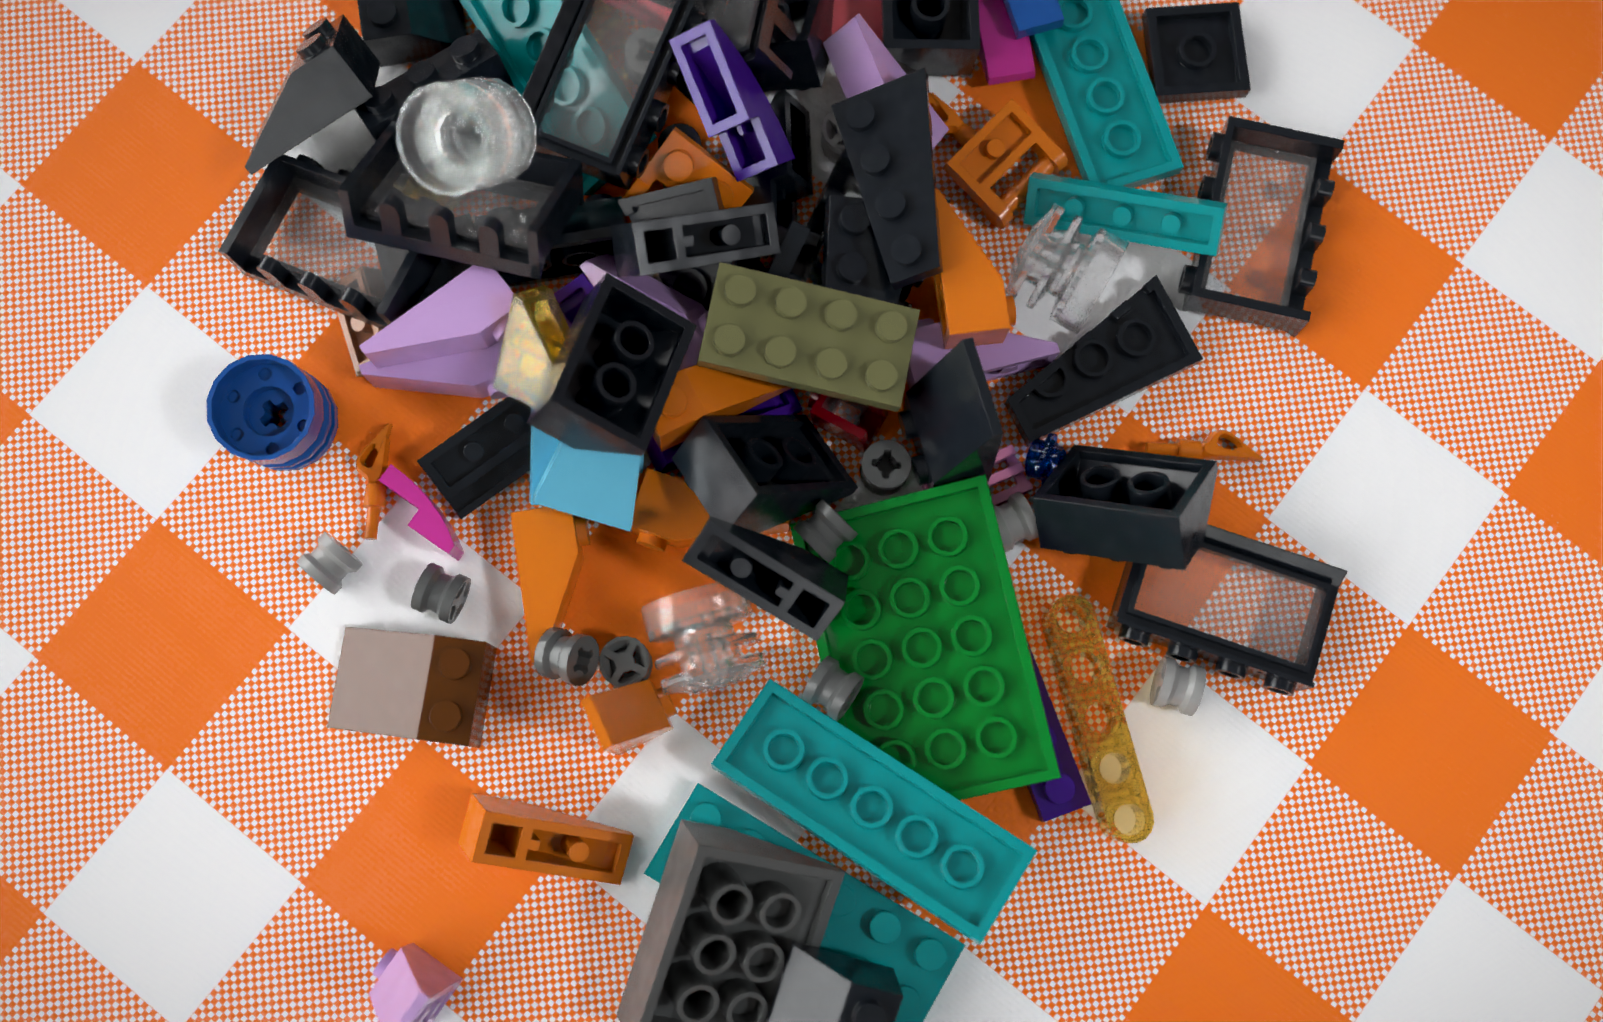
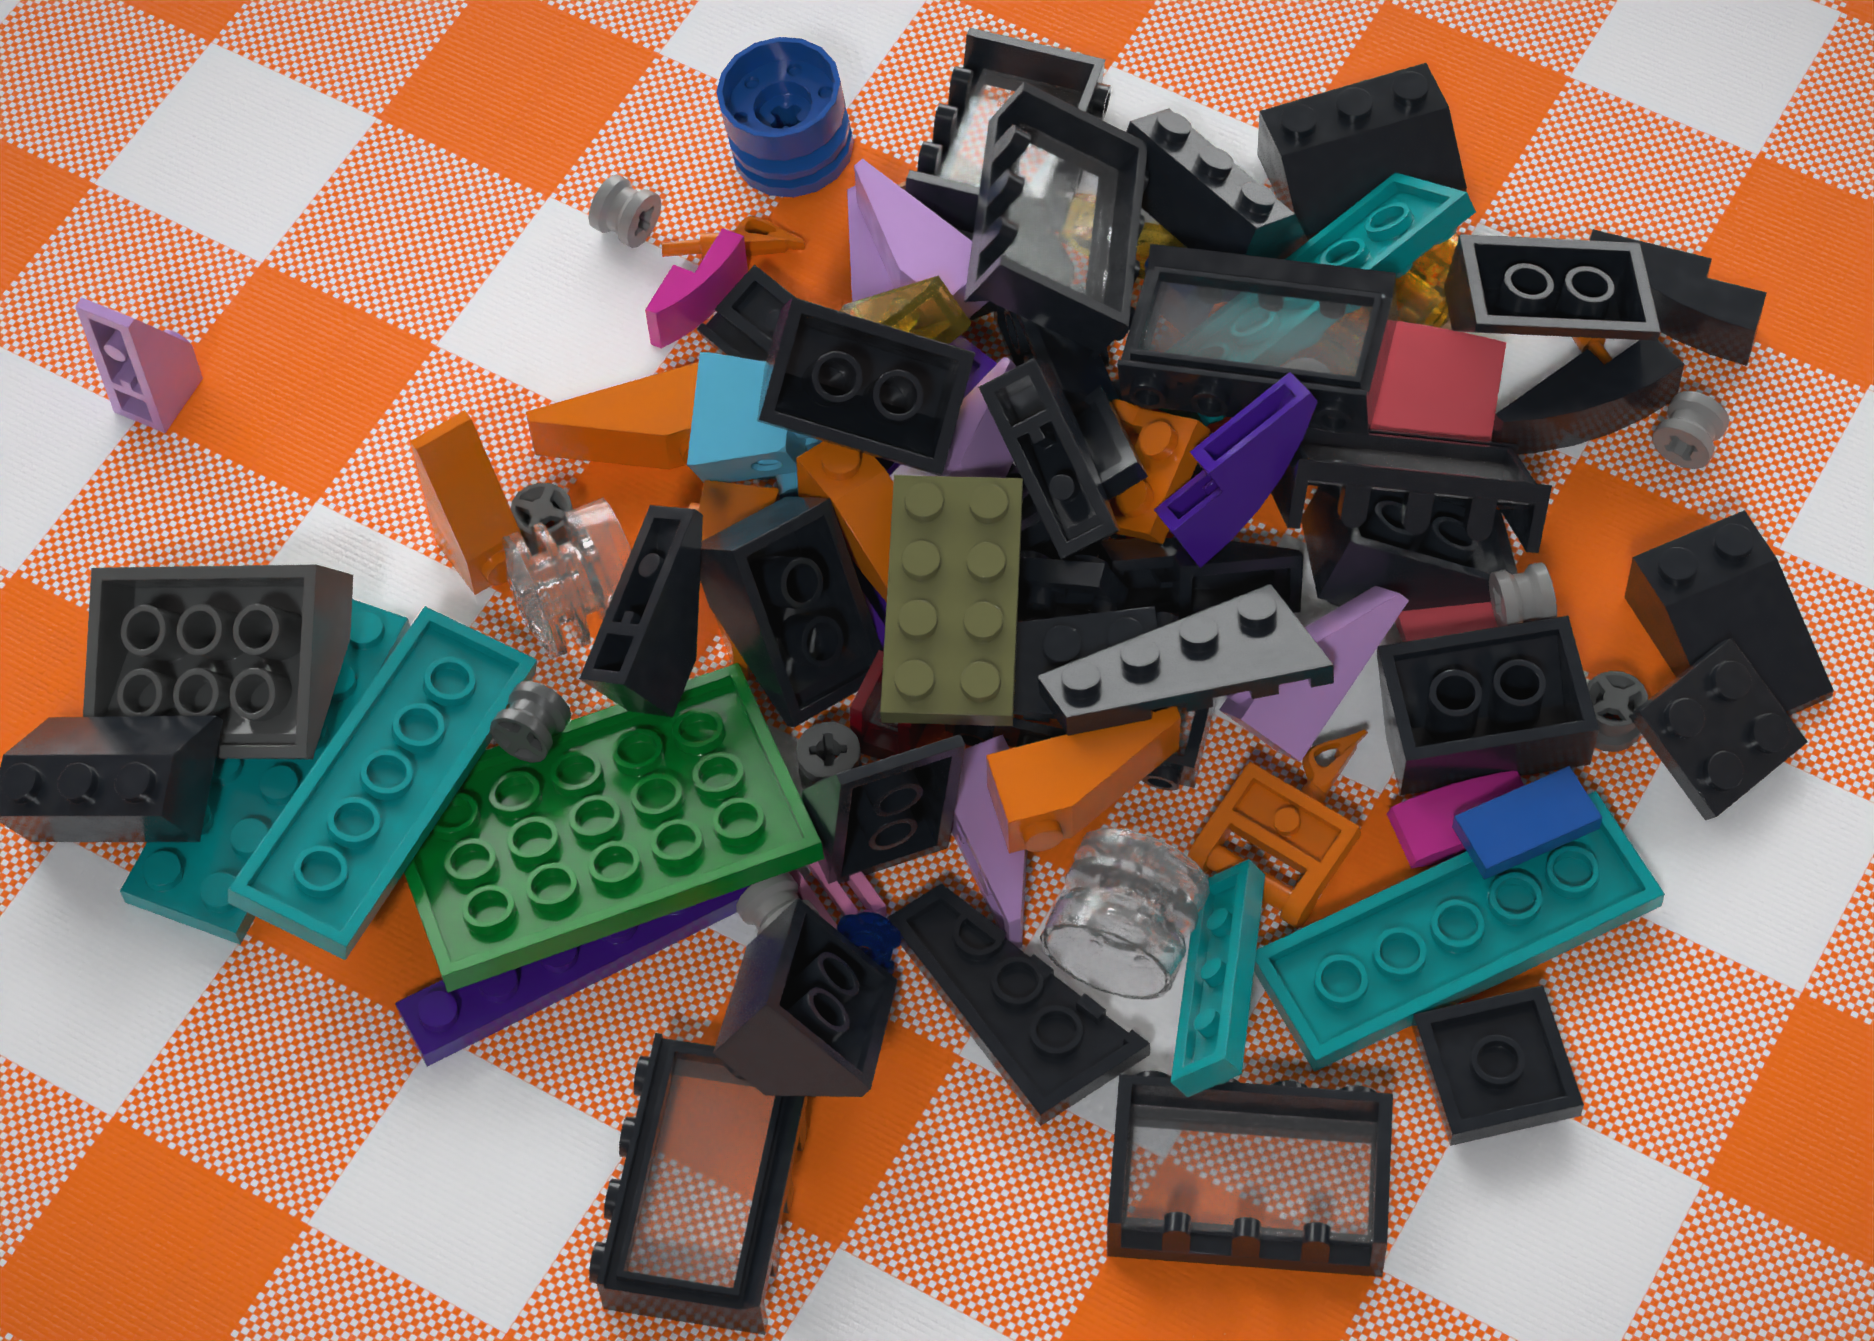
camera: 90 degrees right, 20 degrees down
(325, 81) = (1183, 70): black slope -> none
(413, 686) = (490, 325): slope -> none
(440, 593) = (603, 322): dark grey wheel -> none
(465, 135) = (1115, 189): clear wheel -> none
(542, 840) = (324, 468): orange slope -> none
(566, 656) = (535, 428): dark grey wheel -> none
(825, 531) = (724, 681): dark grey wheel -> none
(1115, 738) = (513, 1071): clear yellow beam -> none
(1178, 686) = (586, 1137): light grey wheel -> none
(1206, 450) = (920, 1153): orange hand -> none

